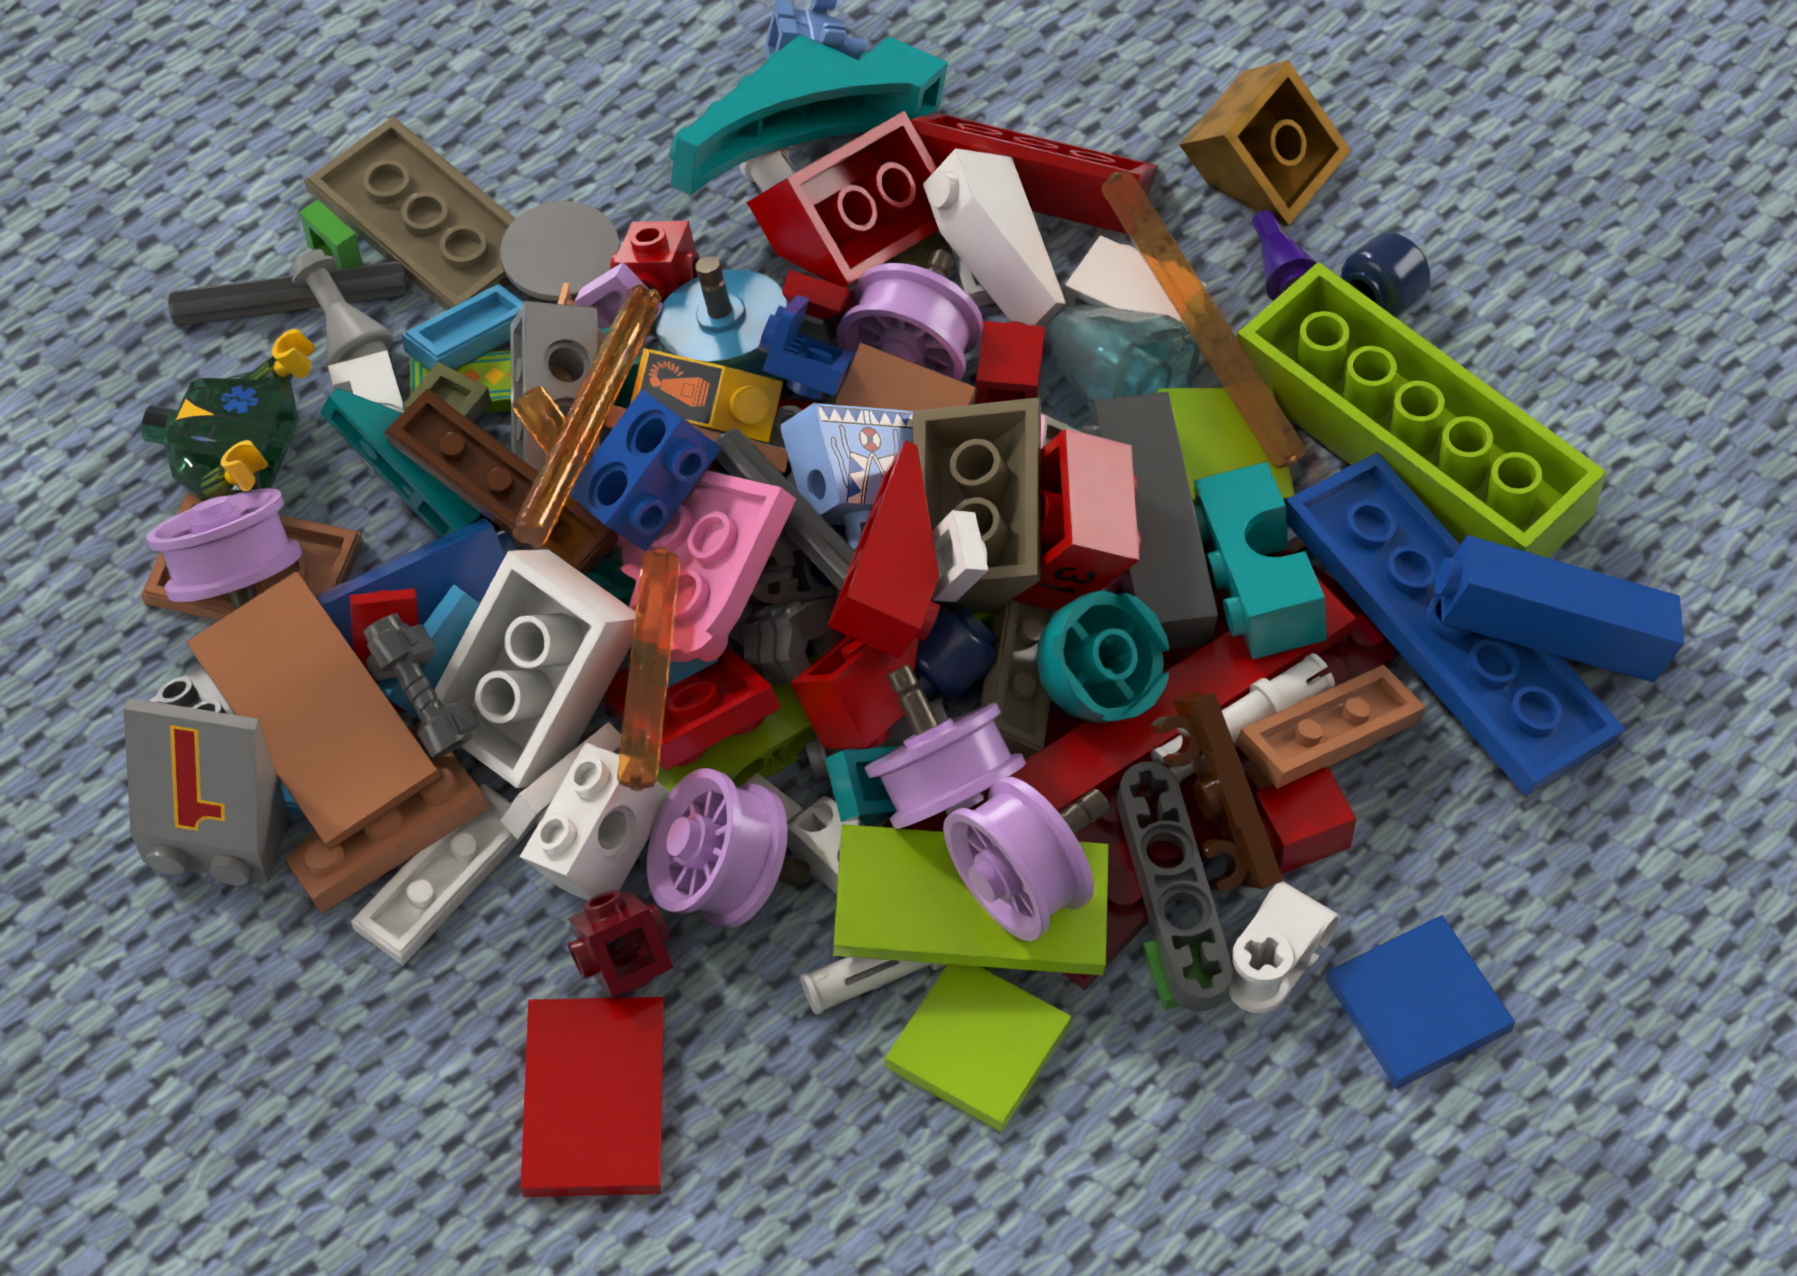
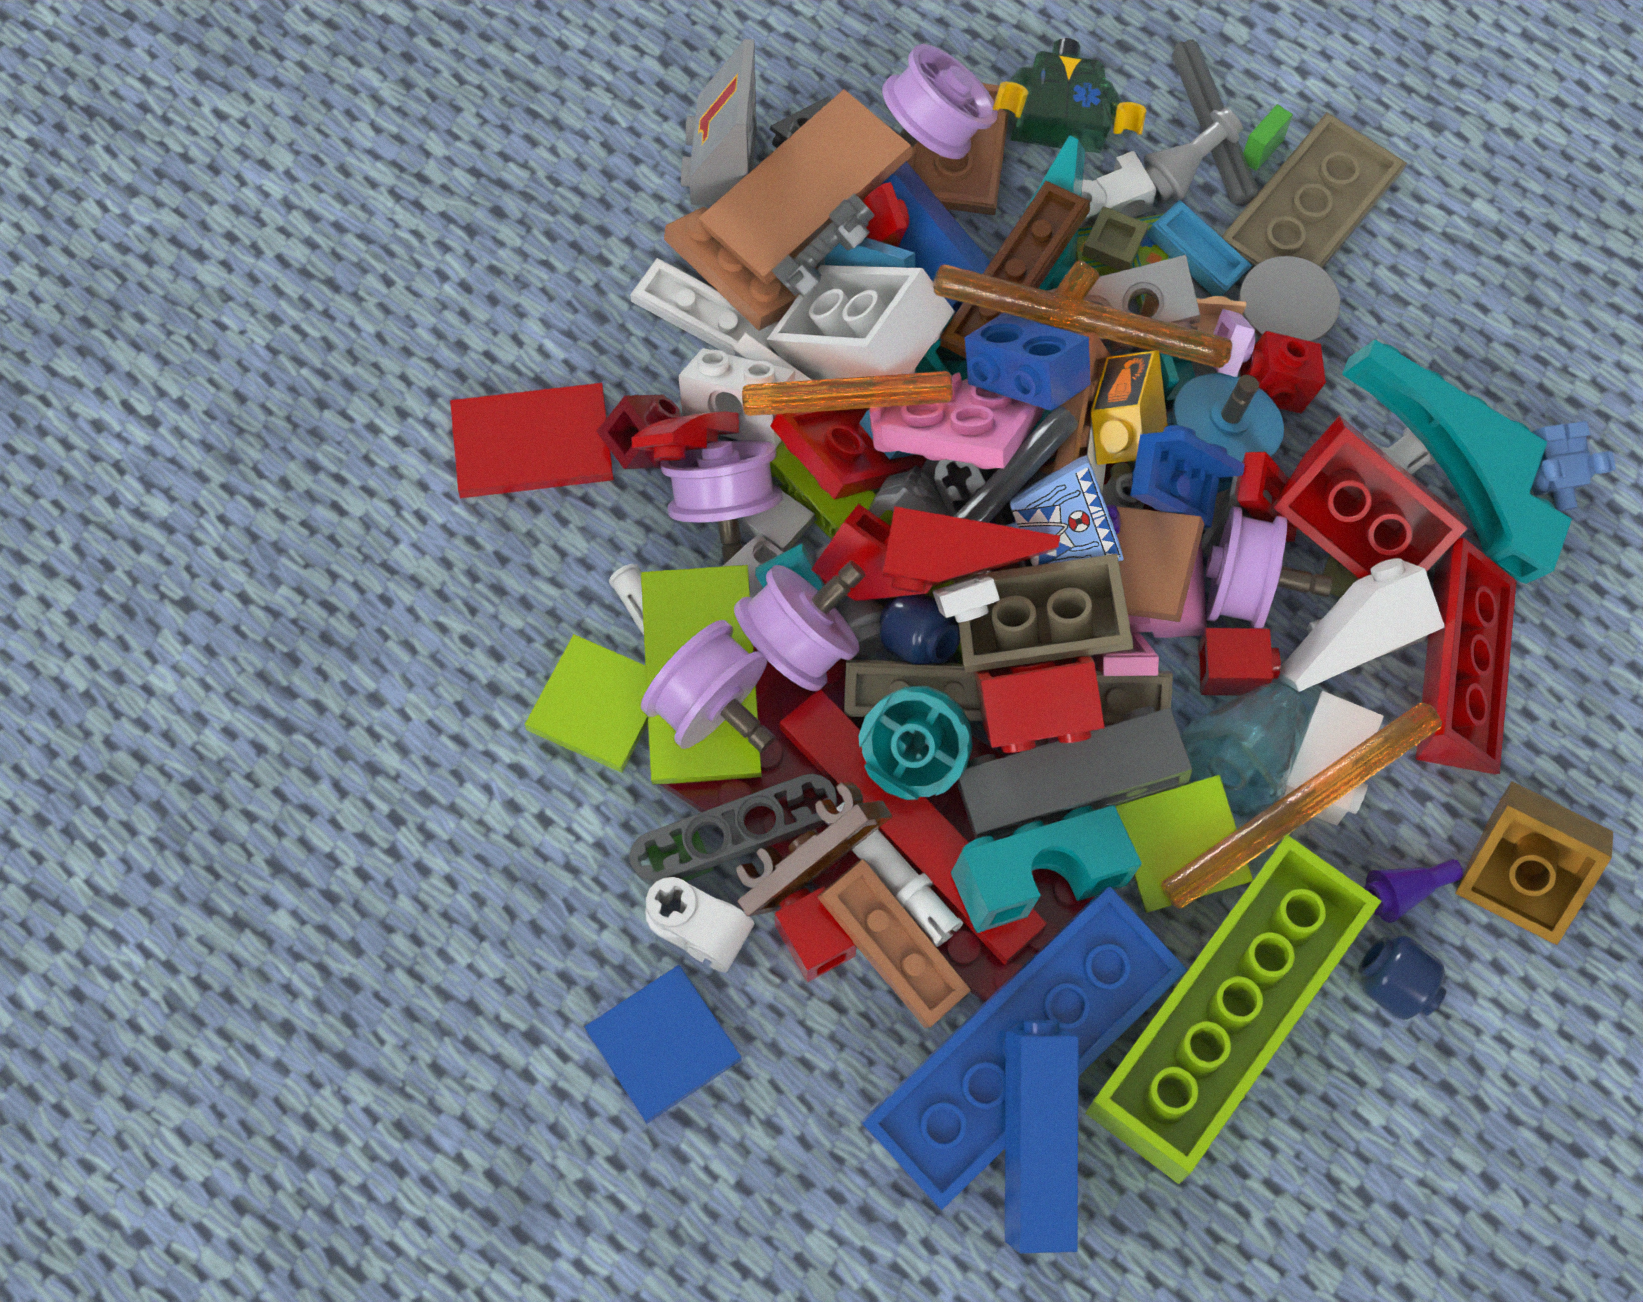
camera: 80 degrees right, 10 degrees up
(655, 869) = (676, 435): none -> red slope

